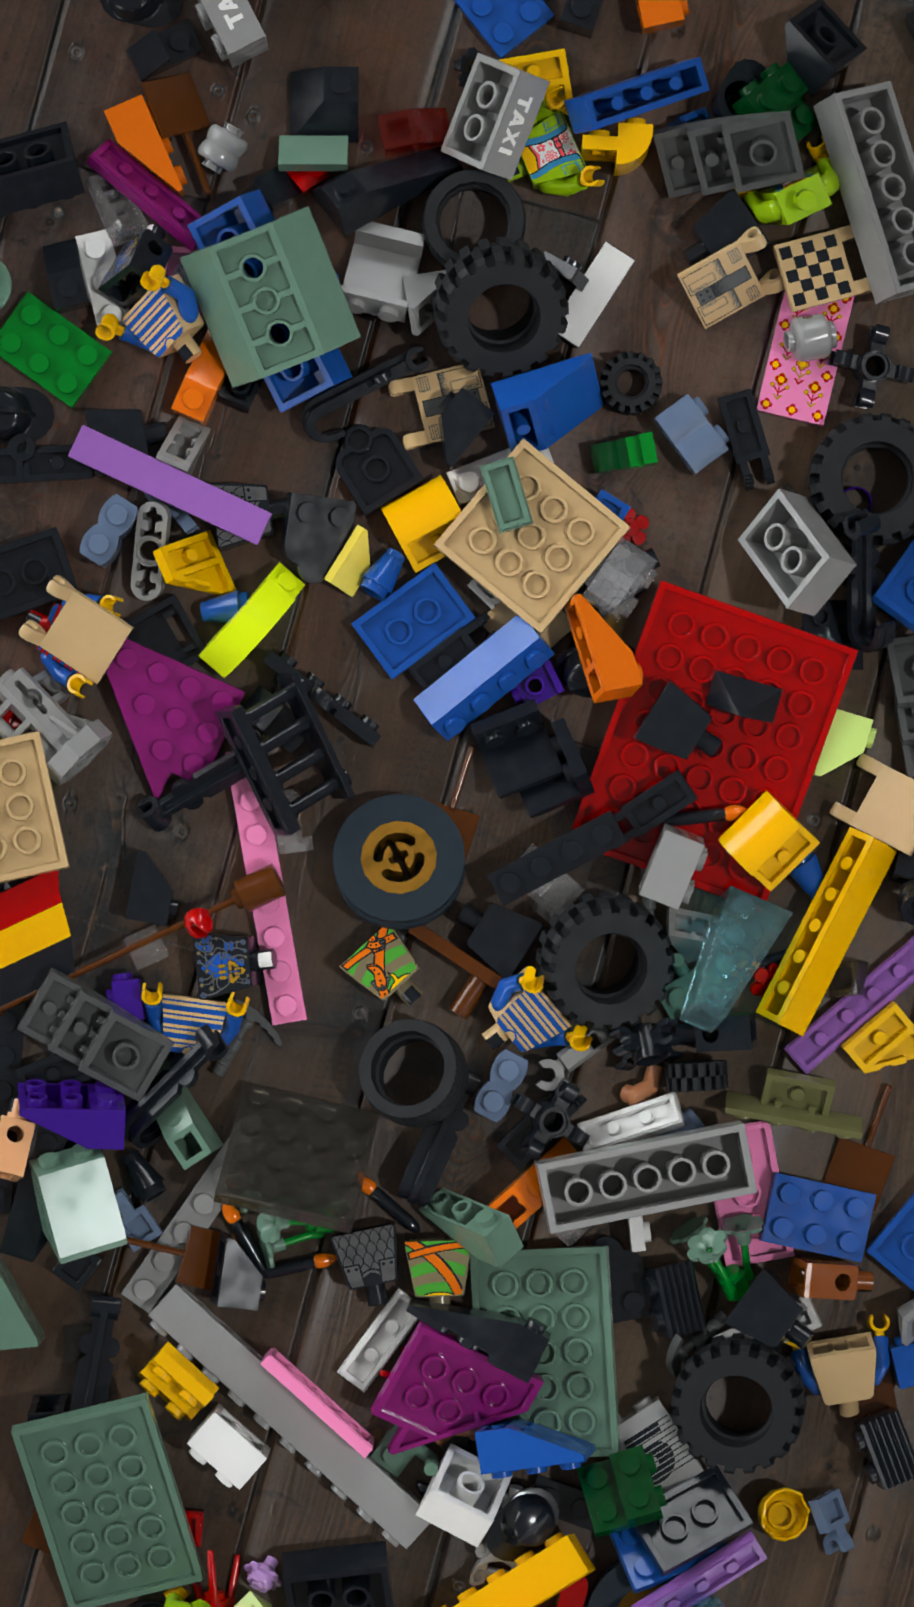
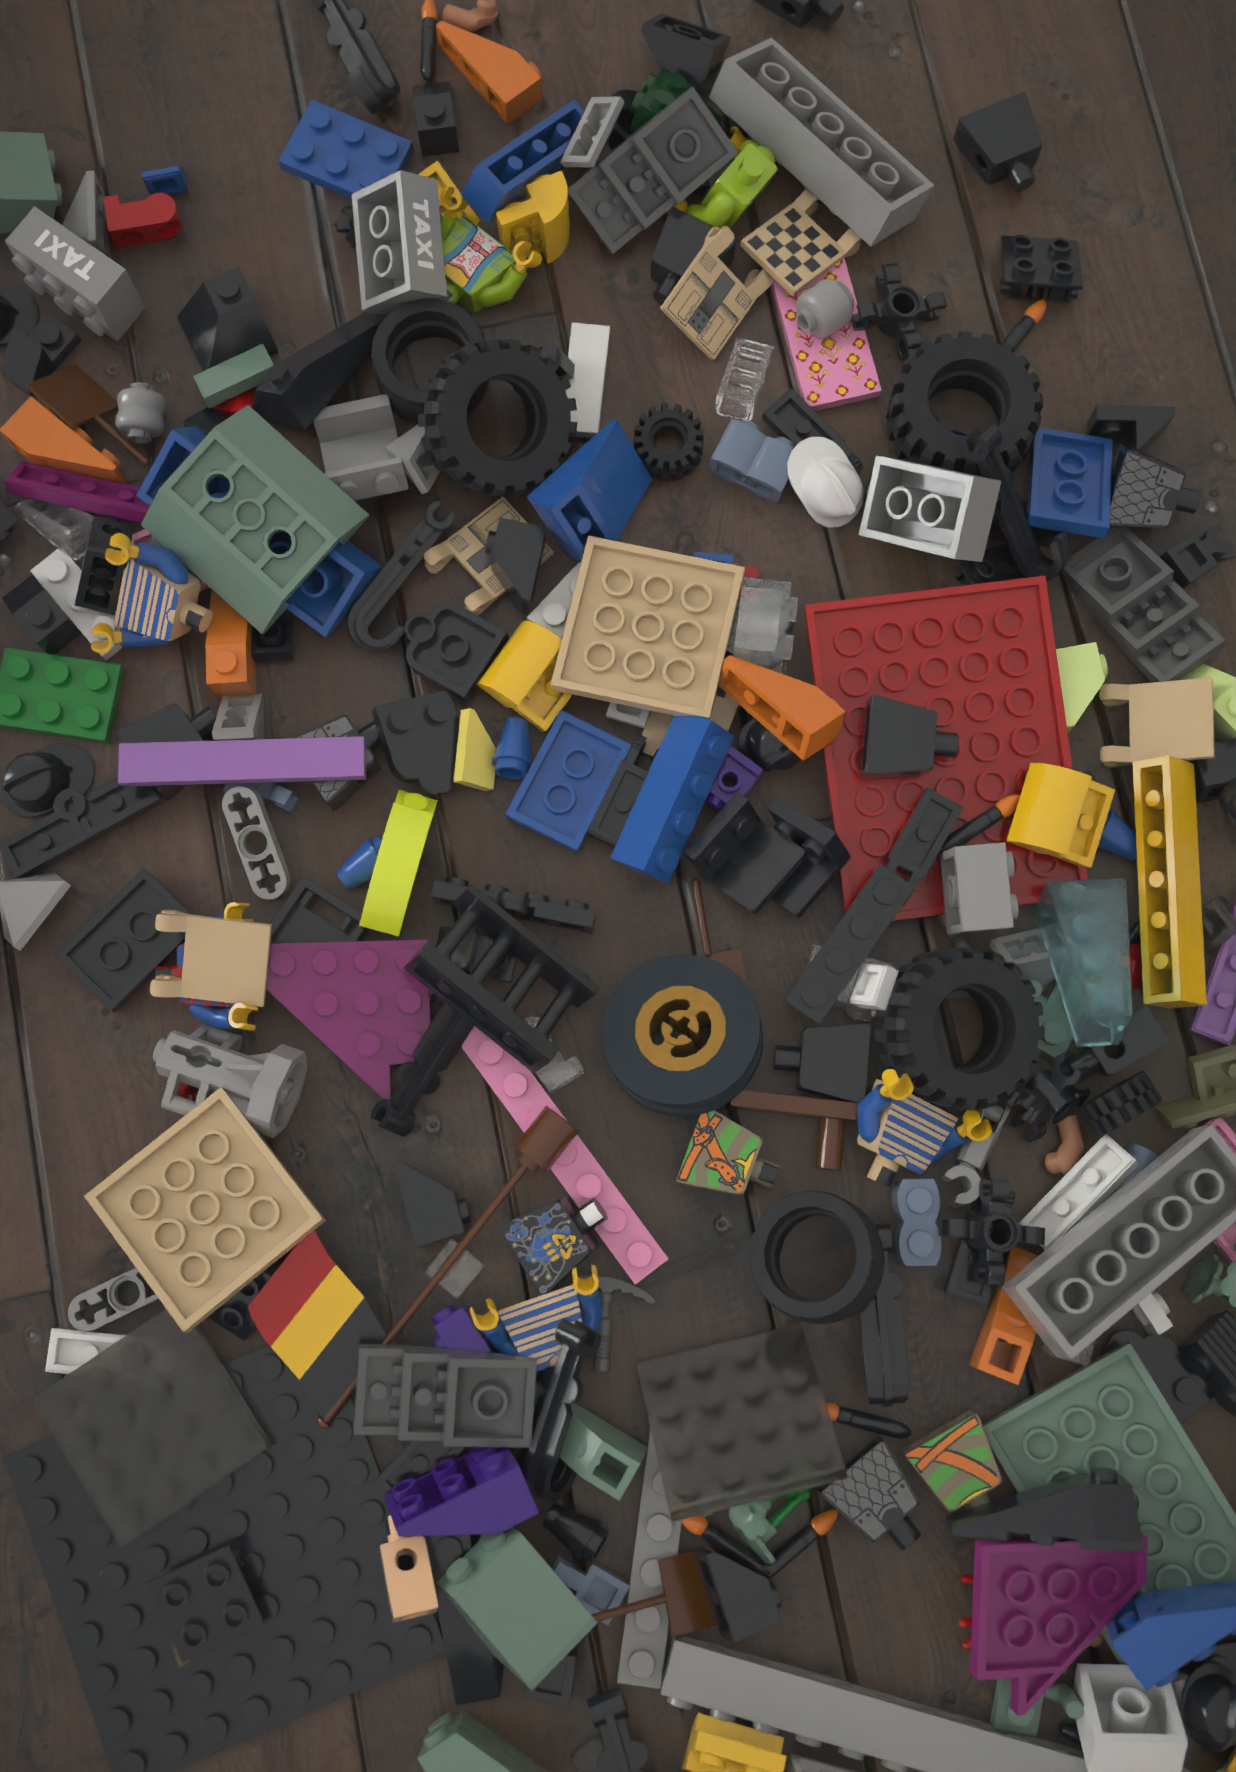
camera: 25 degrees left, 10 degrees down
(104, 539) = (200, 854): sand blue brick -> none
(195, 565) = (309, 833): yellow wing -> none
(202, 919) = (501, 1204): red hinge -> none
(318, 1401) = (906, 1696): bright pink tile -> none
(379, 1342) = (933, 1585): white tile -> none
(413, 129) = (322, 305): clear red slope -> none
(475, 1226) = (975, 1395): sand green slope -> none
(506, 495) = (600, 597): sand green tile -> none
(557, 899) = (873, 986): none -> white tile
(624, 454) = (699, 511): leg -> none
(696, 101) = (593, 132): none -> light grey slope
(700, 377) = (737, 401): none -> clear slope
(736, 480) = (825, 481): none -> white piece
(743, 697) = (953, 680): black slope -> none

